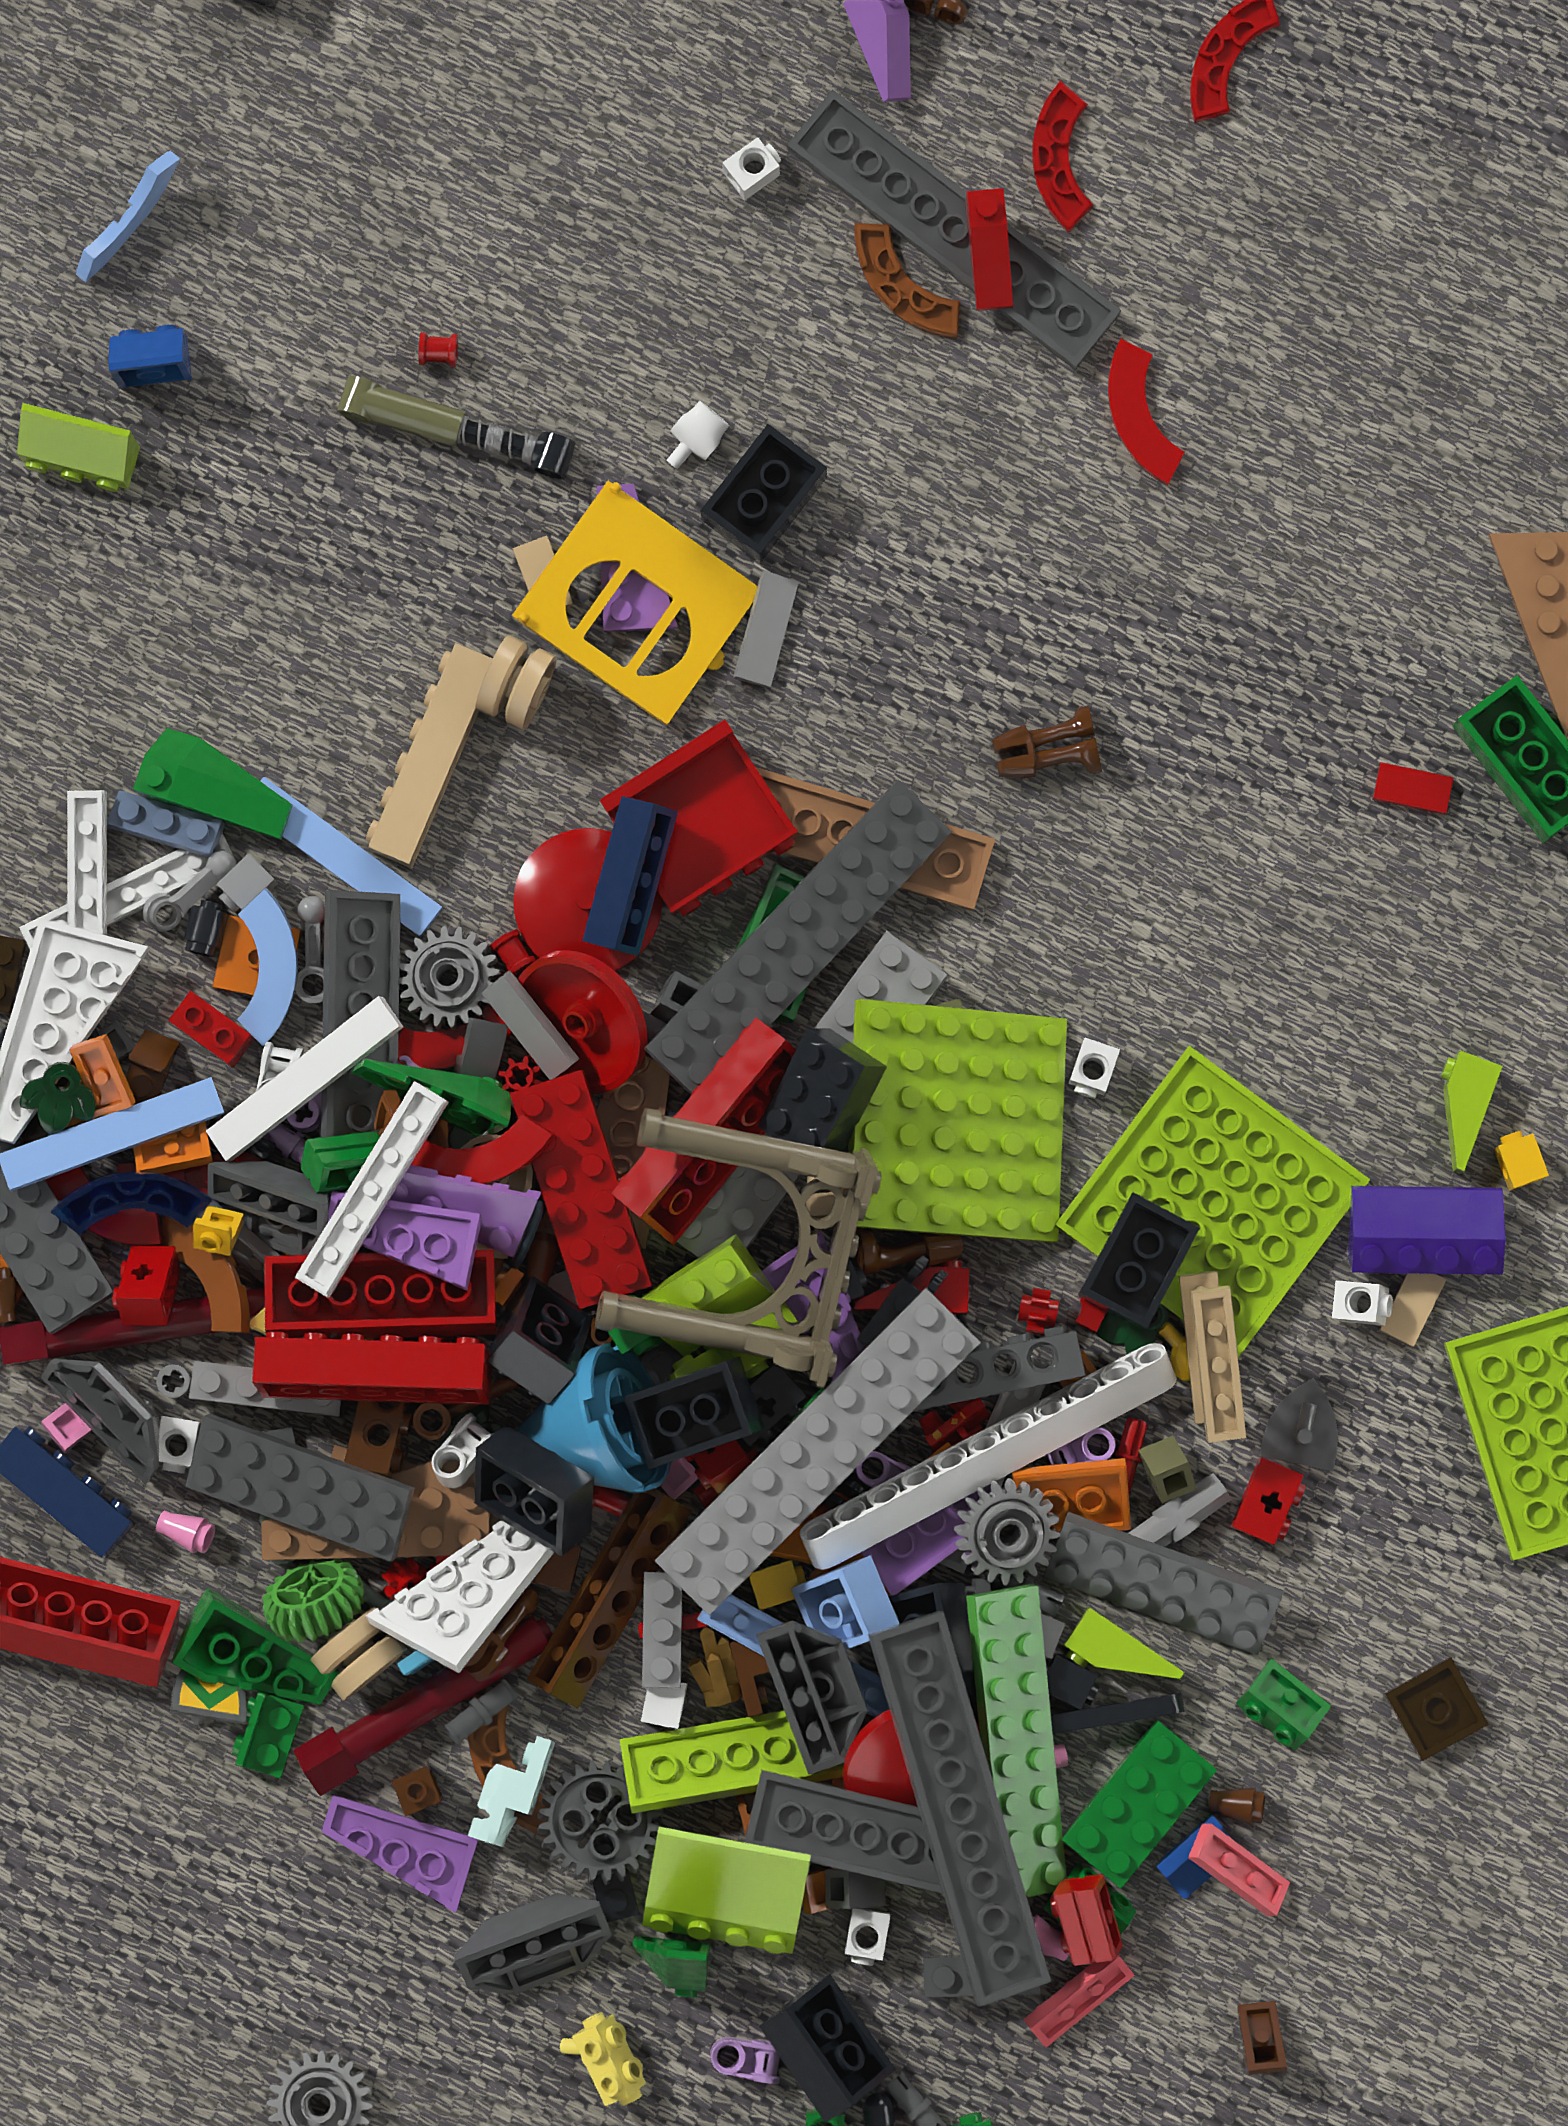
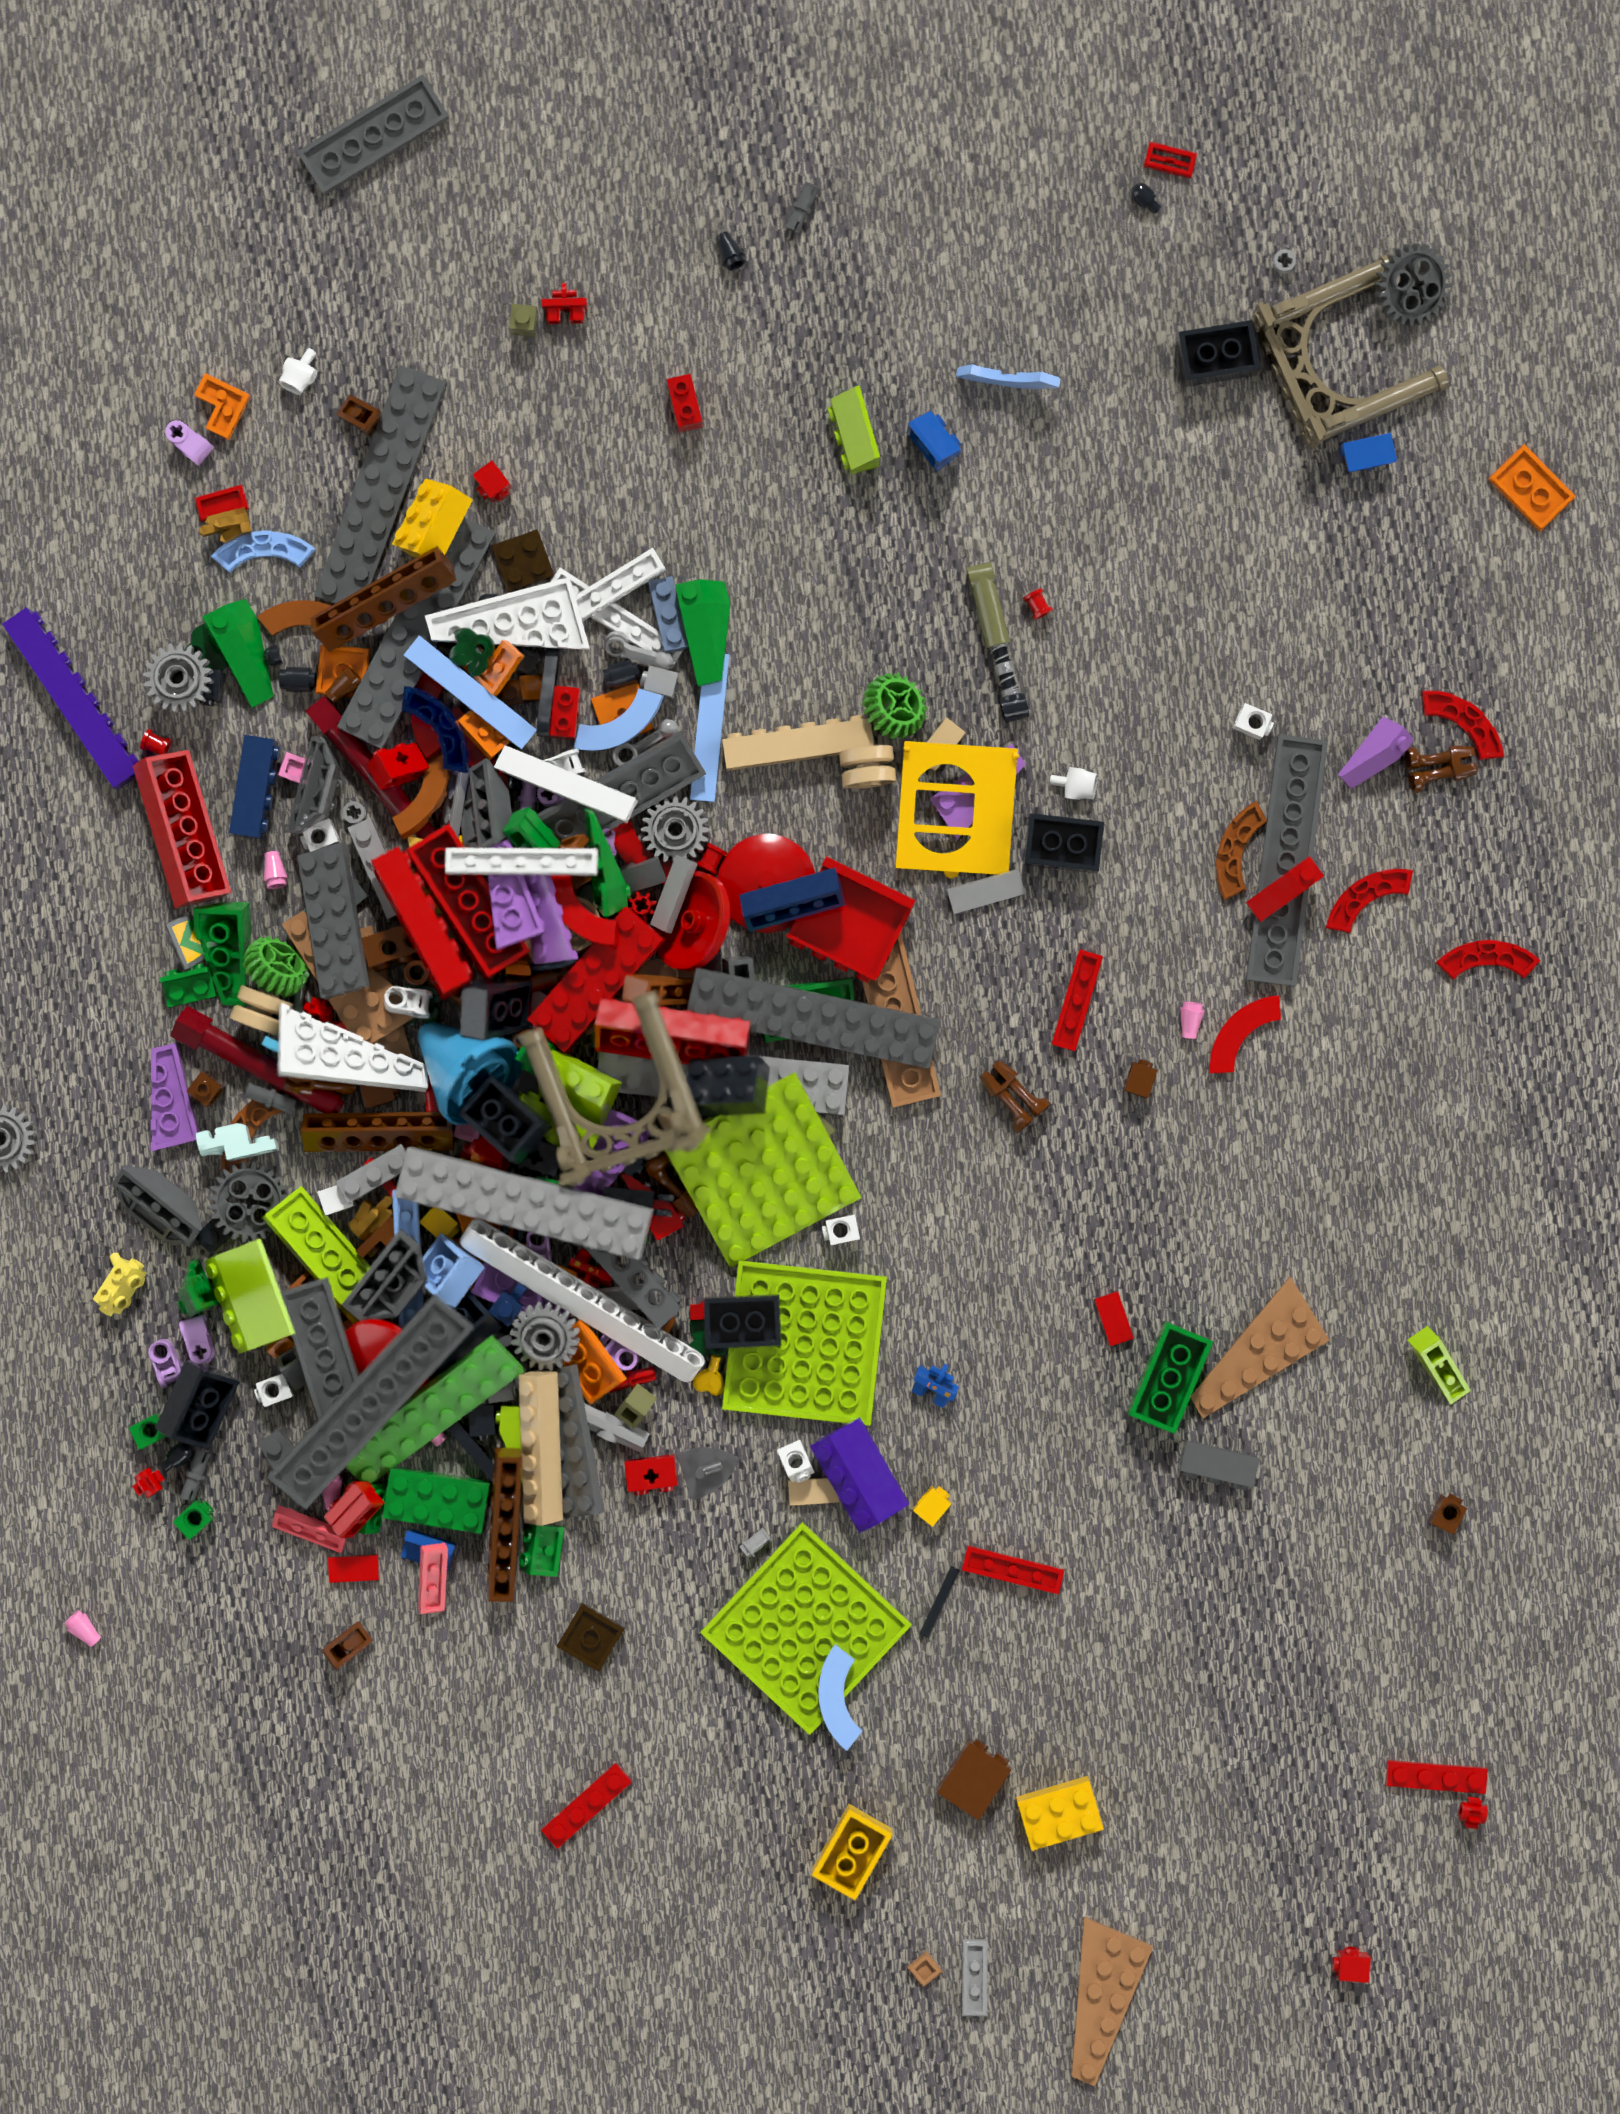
camera: 55 degrees right, 5 degrees up
(171, 1035) = (549, 680): none -> black beam
(217, 1230) = (450, 787): yellow bracket -> none
(459, 602) = (881, 699): none -> bright green gear
(533, 1490) = (408, 1055): black brick -> none
(656, 1092) = (668, 989): none -> dark orange slope
(734, 1994) = (195, 1336): none -> lavender piece
(939, 1558) = (507, 1305): none -> dark blue plate
(975, 595) = (1077, 1000): none -> red plate
(1038, 1311) = (683, 1279): red gear -> none
(1084, 465) = (1191, 1018): none -> bright pink cone
(1124, 573) = (1140, 1078): none -> reddish brown brick
(1149, 1624) = (540, 1447): none -> tan brick
(1164, 1971) = (353, 1568): none -> red tile
(1212, 1356) = (712, 1395): tan fence -> none
(1223, 1731) = (504, 1524): none -> reddish brown brick
(1238, 1804) = (471, 1557): reddish brown cone -> none
(1362, 1058) = (937, 1381): none -> blue hips
(1436, 1420) = (755, 1543): none -> light grey pin
(1466, 1097) = (950, 1454): lime slope -> none

